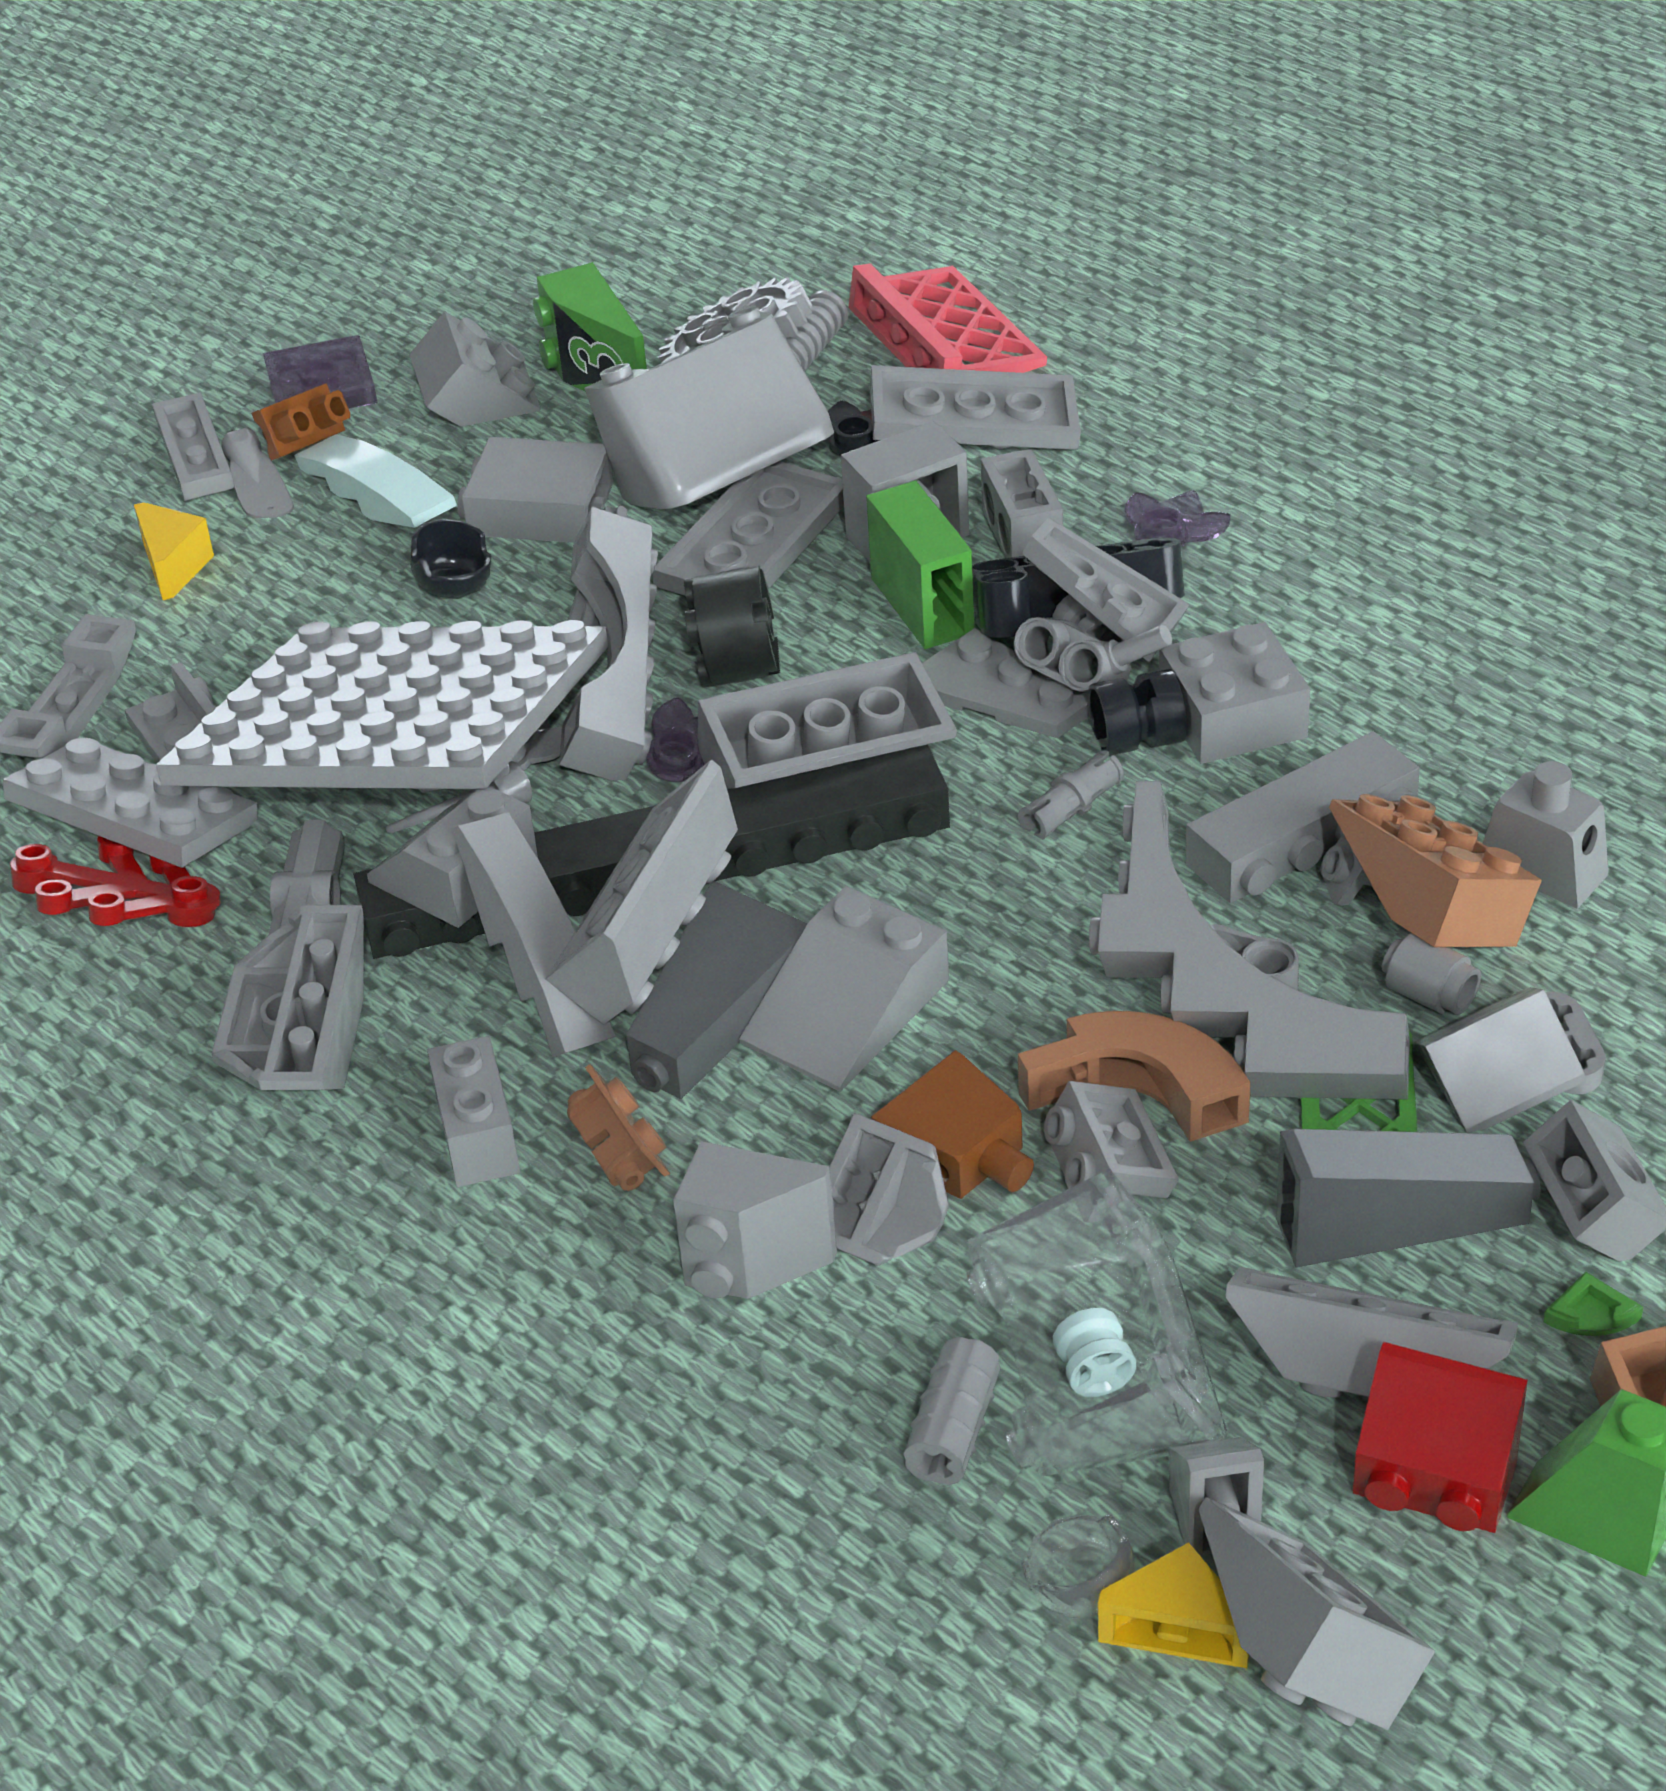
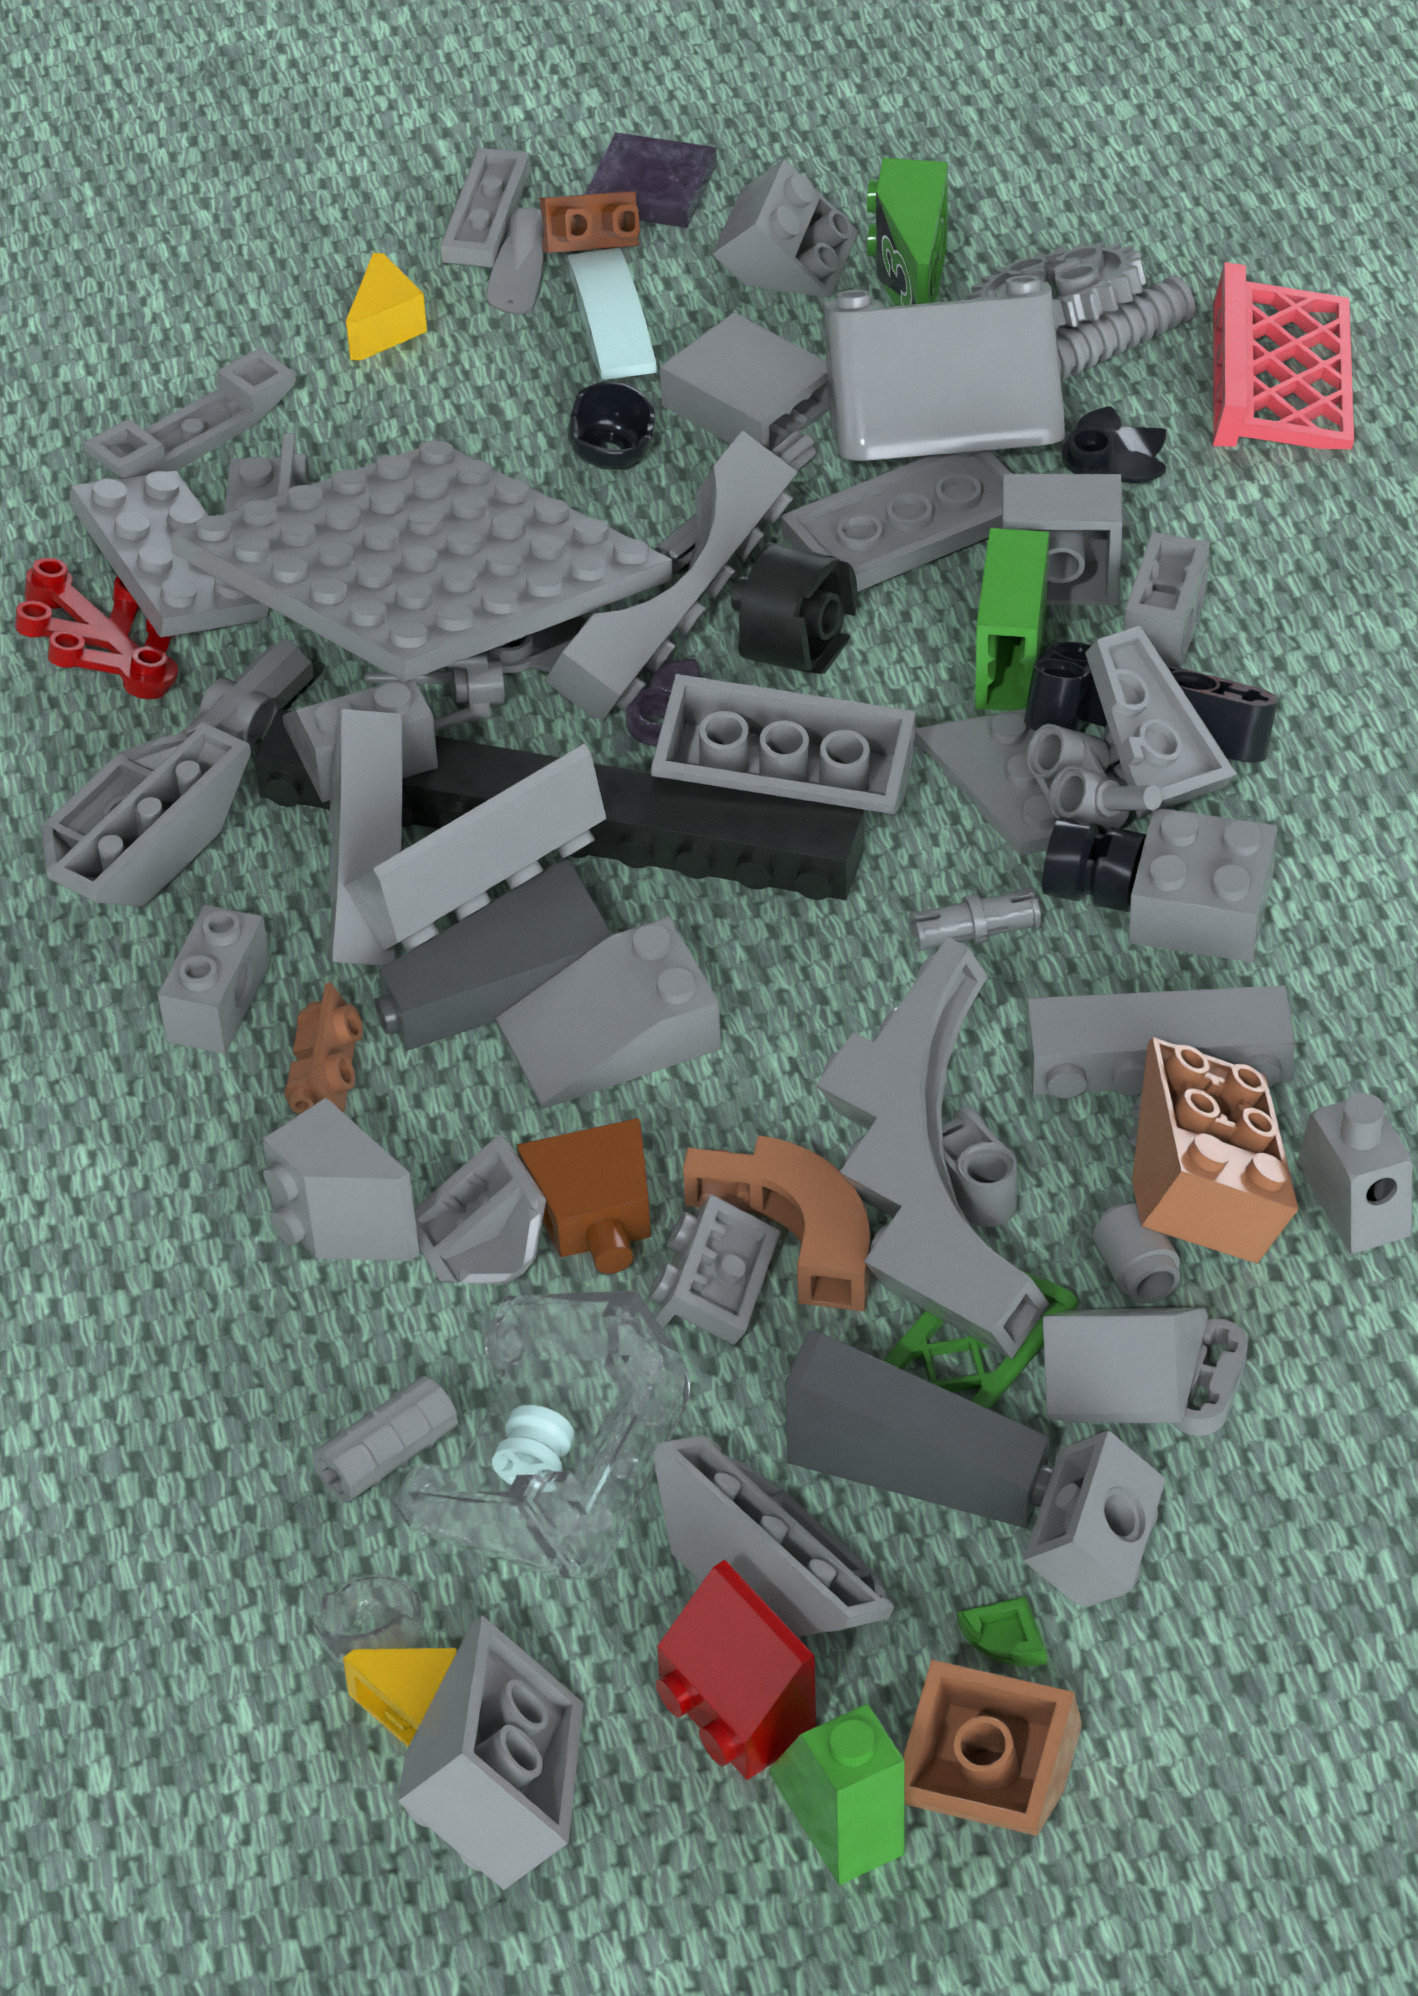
camera: 30 degrees right, 5 degrees up
(977, 406) = (1222, 469): light grey plate -> none
(1174, 518) = (1320, 677): clear purple plate -> none
(1220, 1470) = (529, 1607): light grey slope -> none

